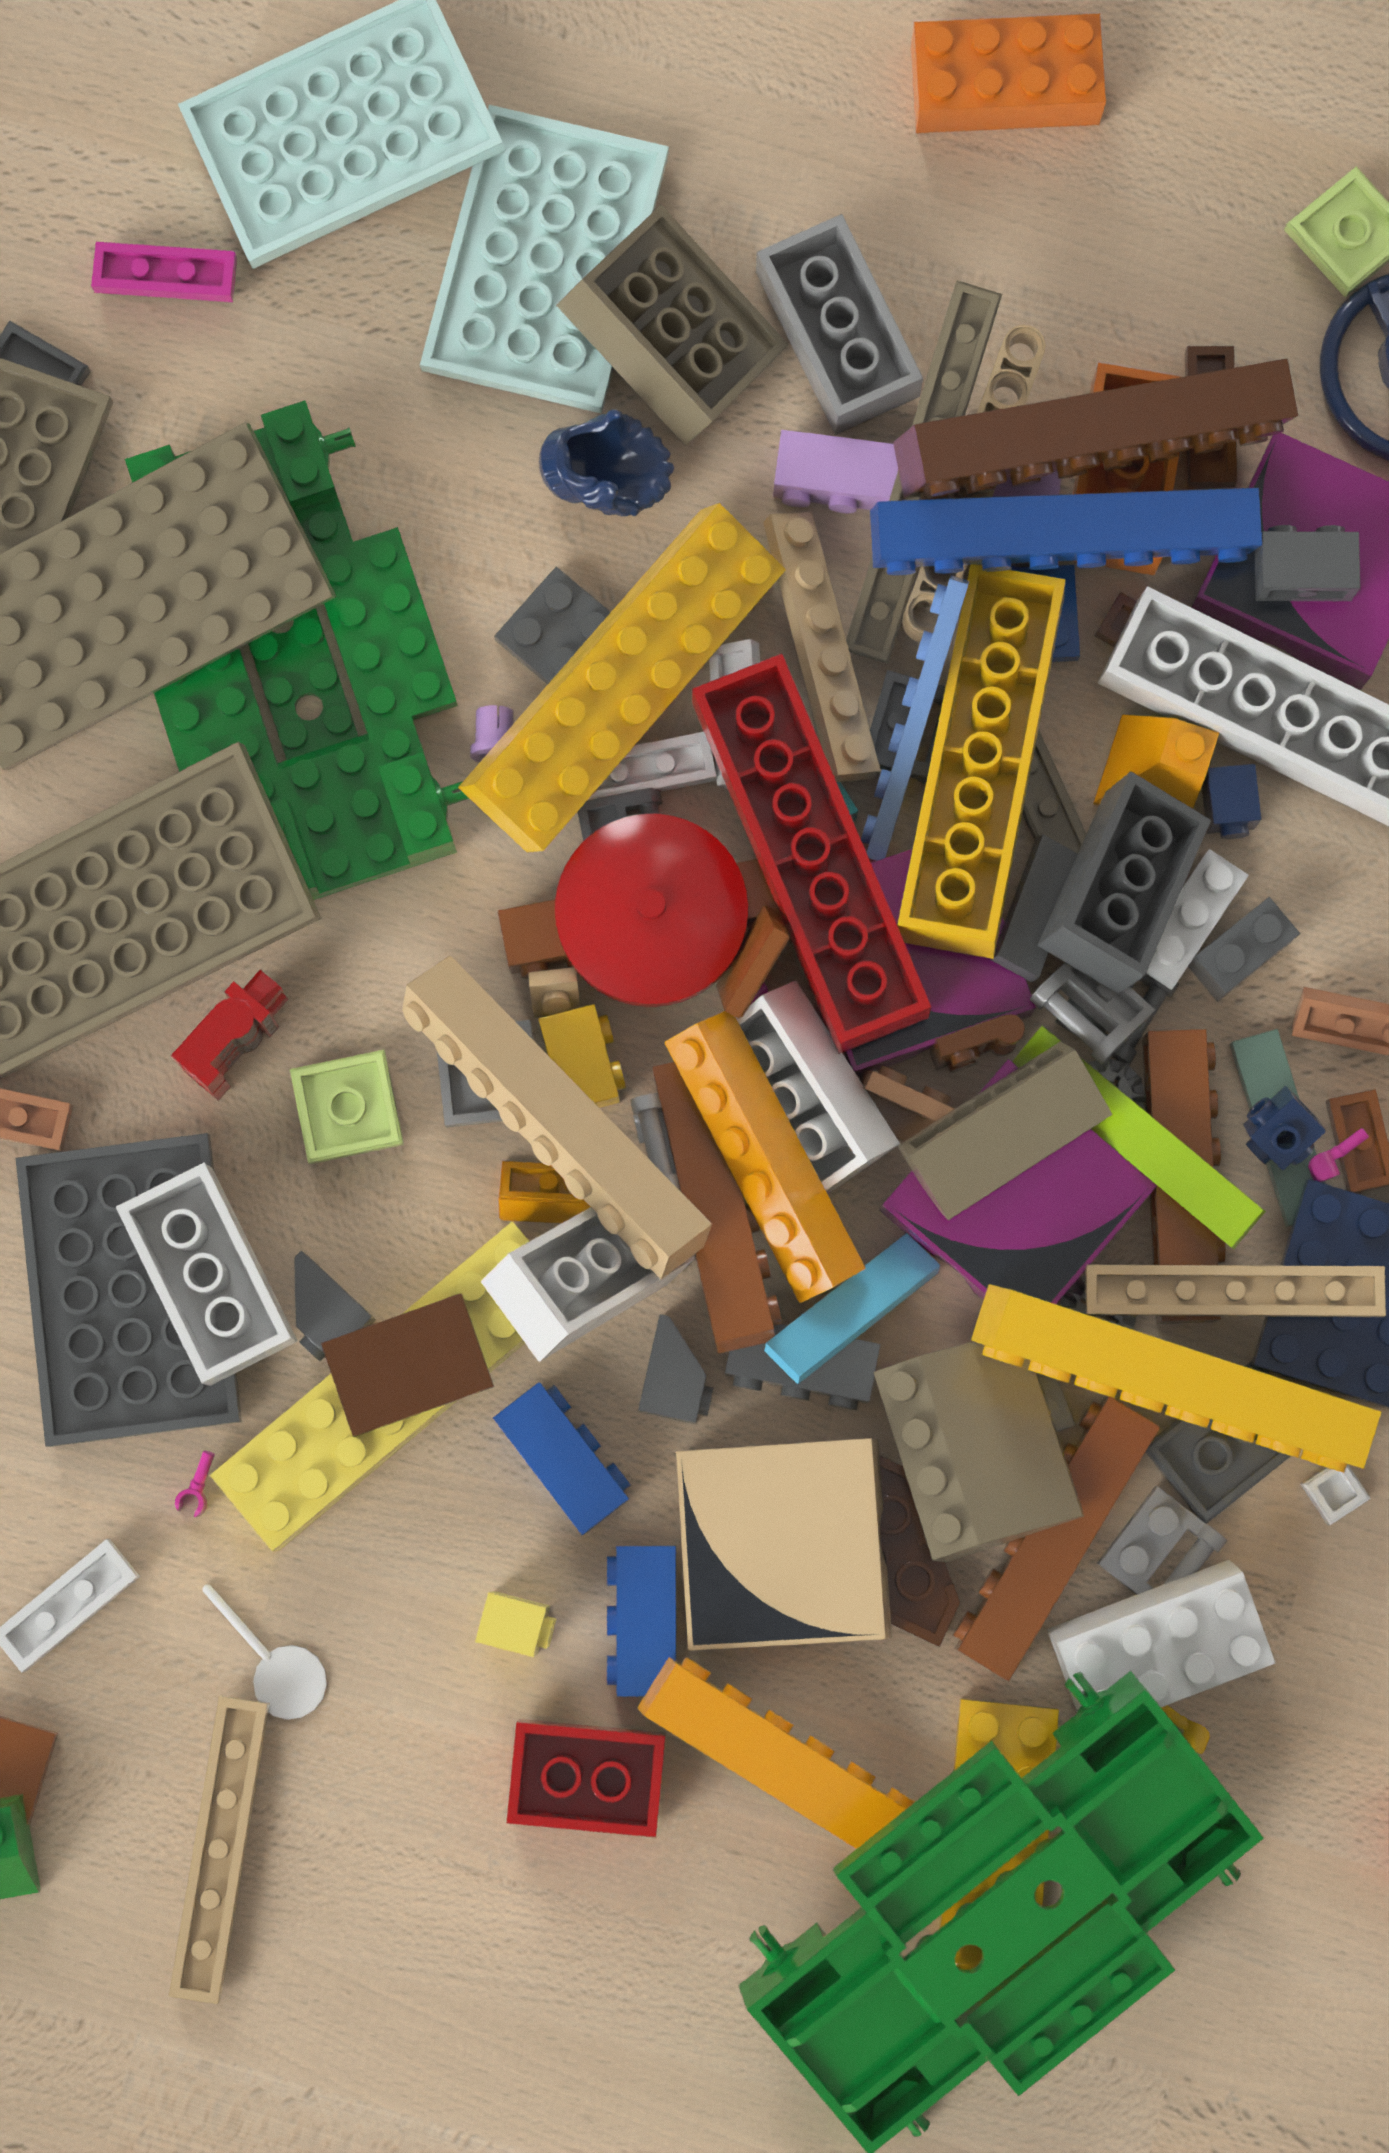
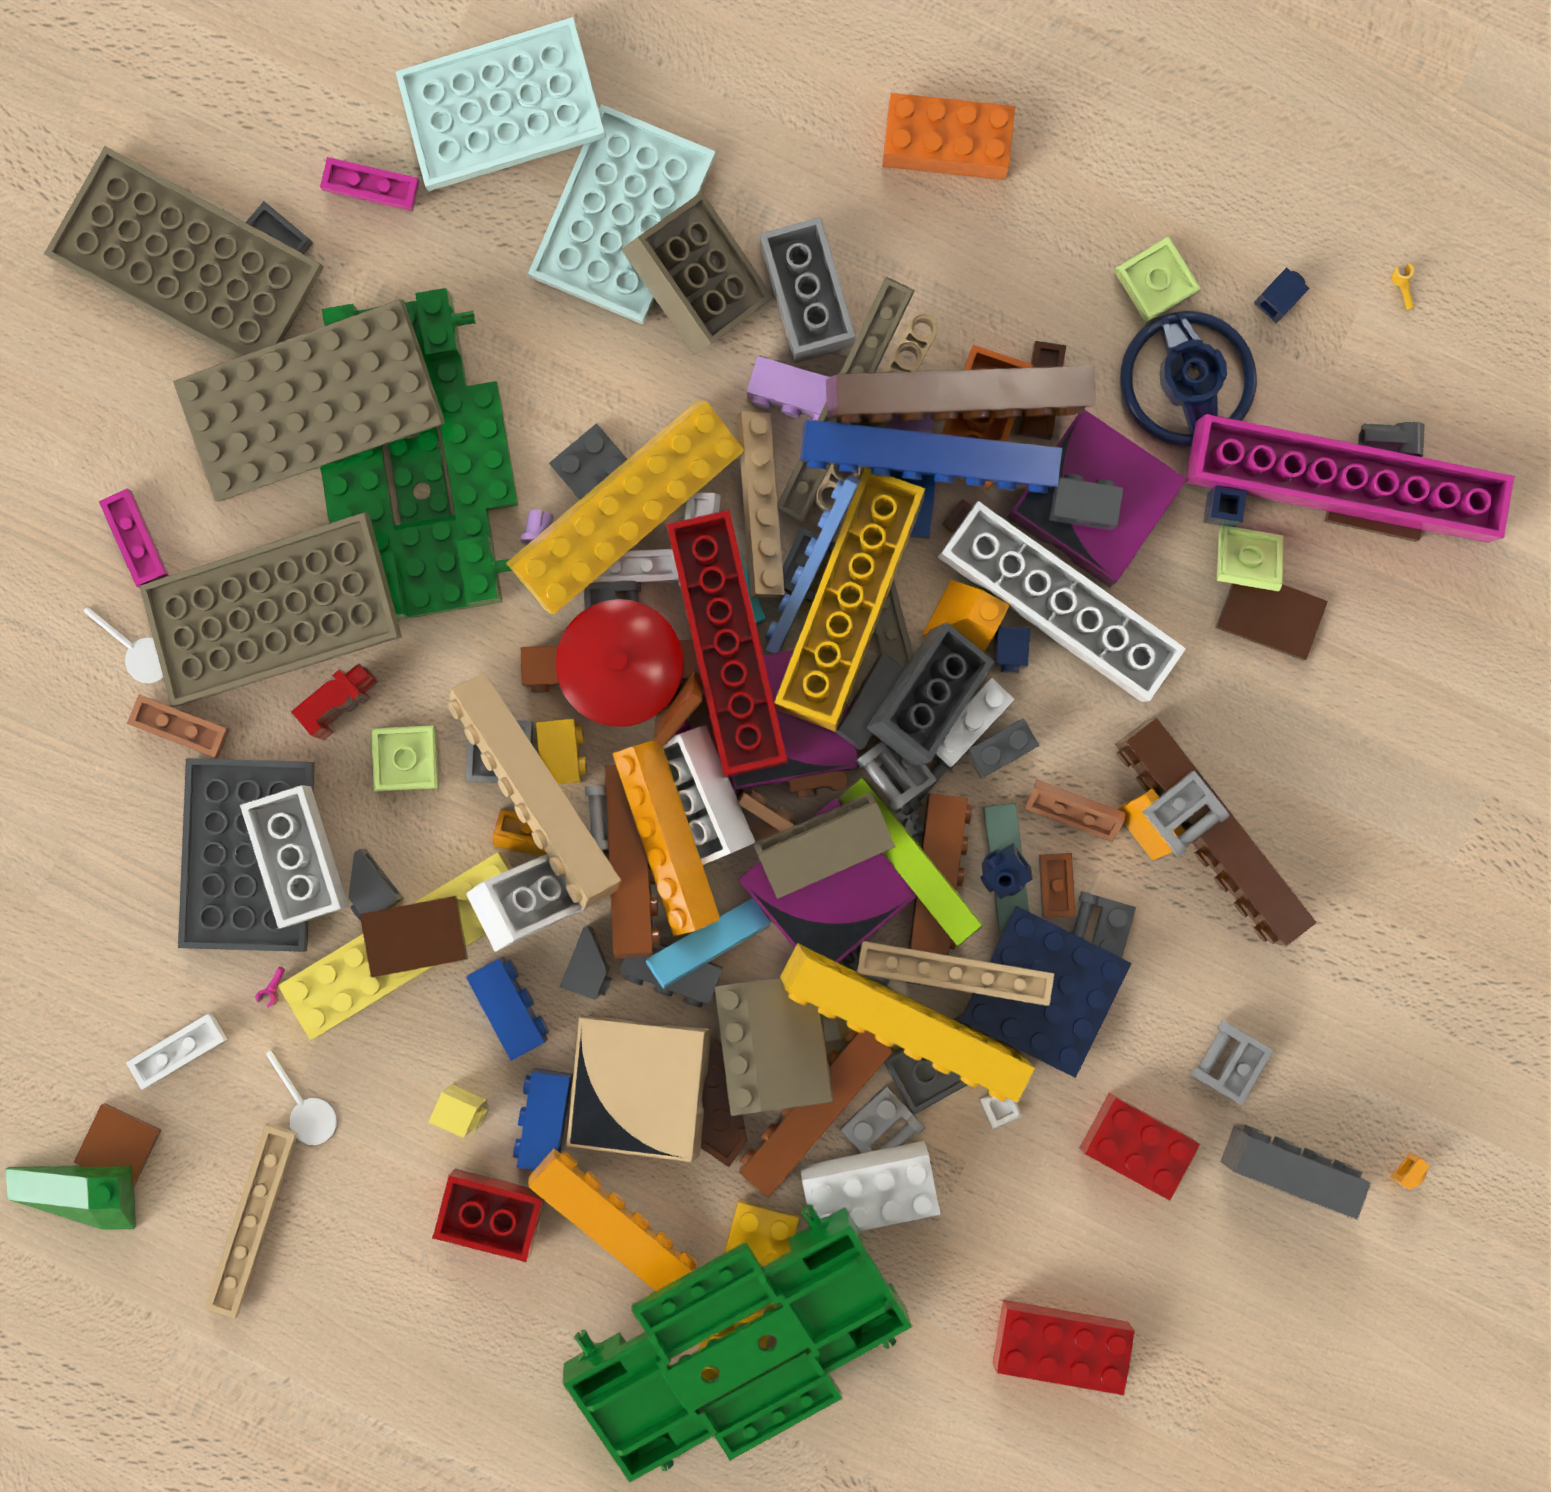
camera: 10 degrees right, 5 degrees up
(554, 991) = (550, 705): tan plate -> none
(607, 464) = (639, 361): dark blue hair -> none
(1194, 1733) = (883, 1246): yellow hand -> none
(1323, 1164) = (1029, 897): dark pink hand -> none

